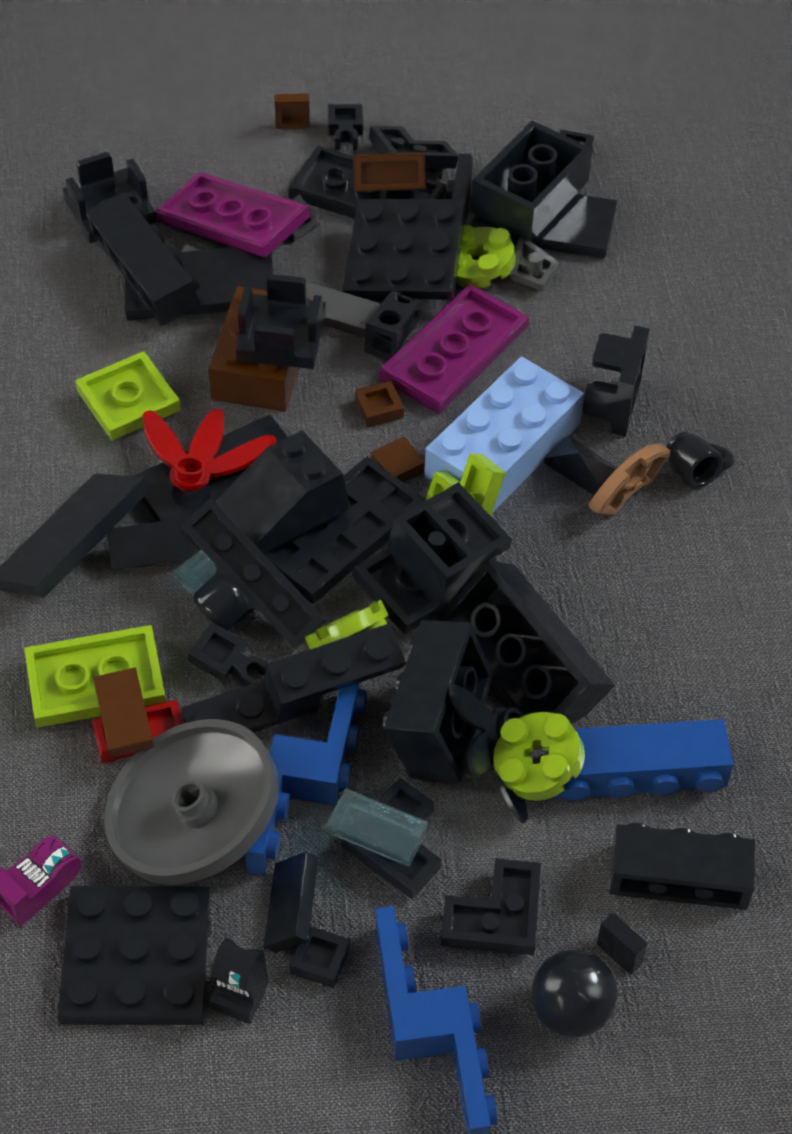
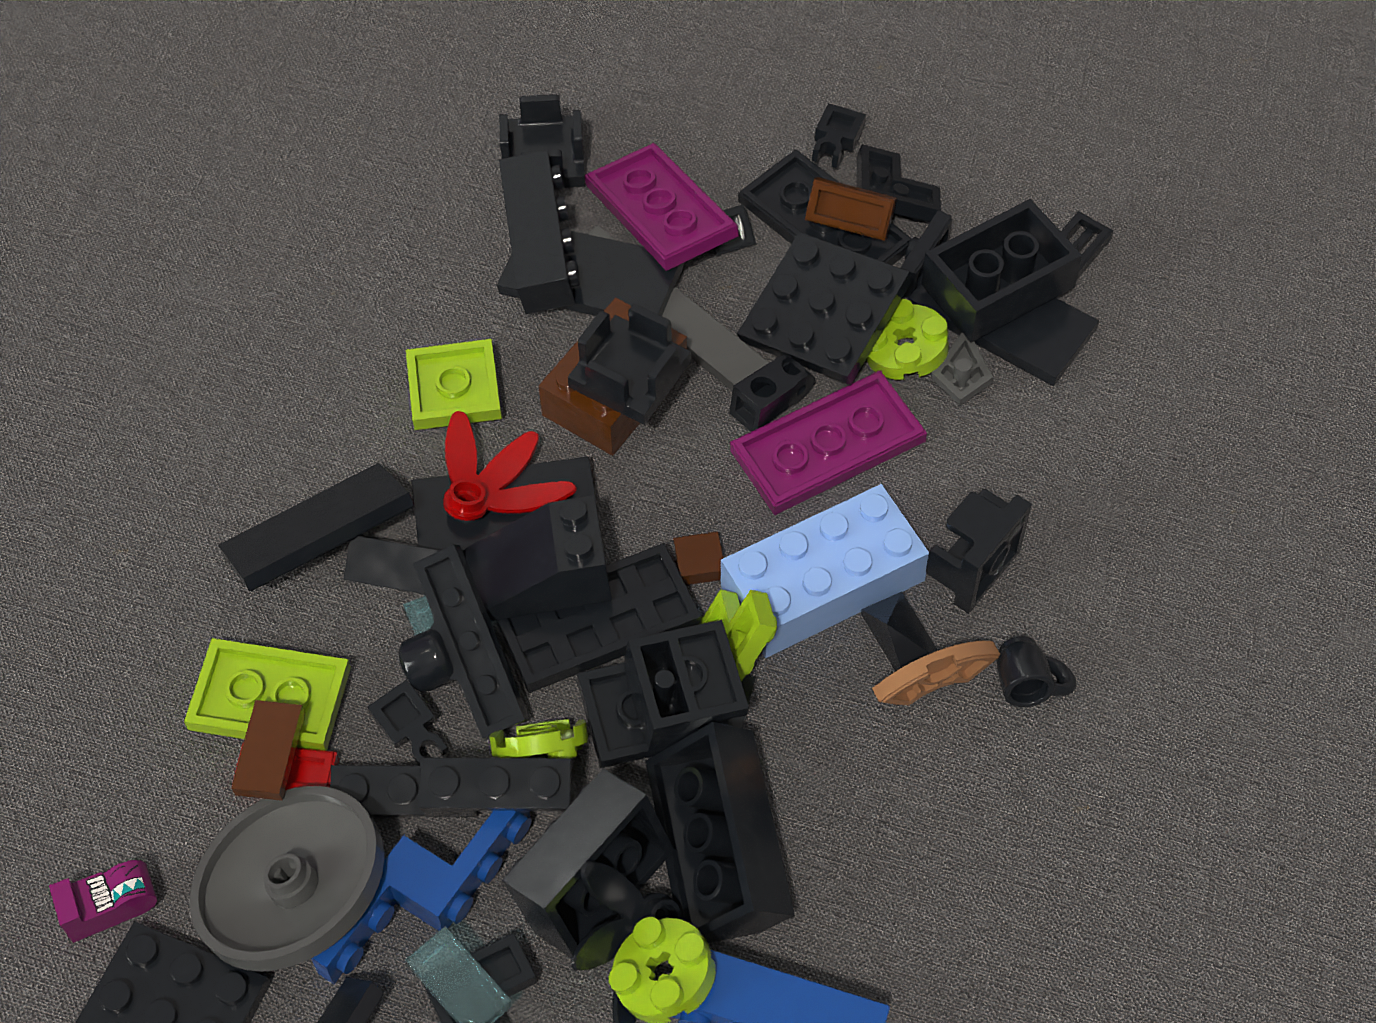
camera: 25 degrees right, 5 degrees up
(292, 111) = (786, 99): reddish brown tile -> none
(379, 404) = (713, 482): reddish brown tile -> none

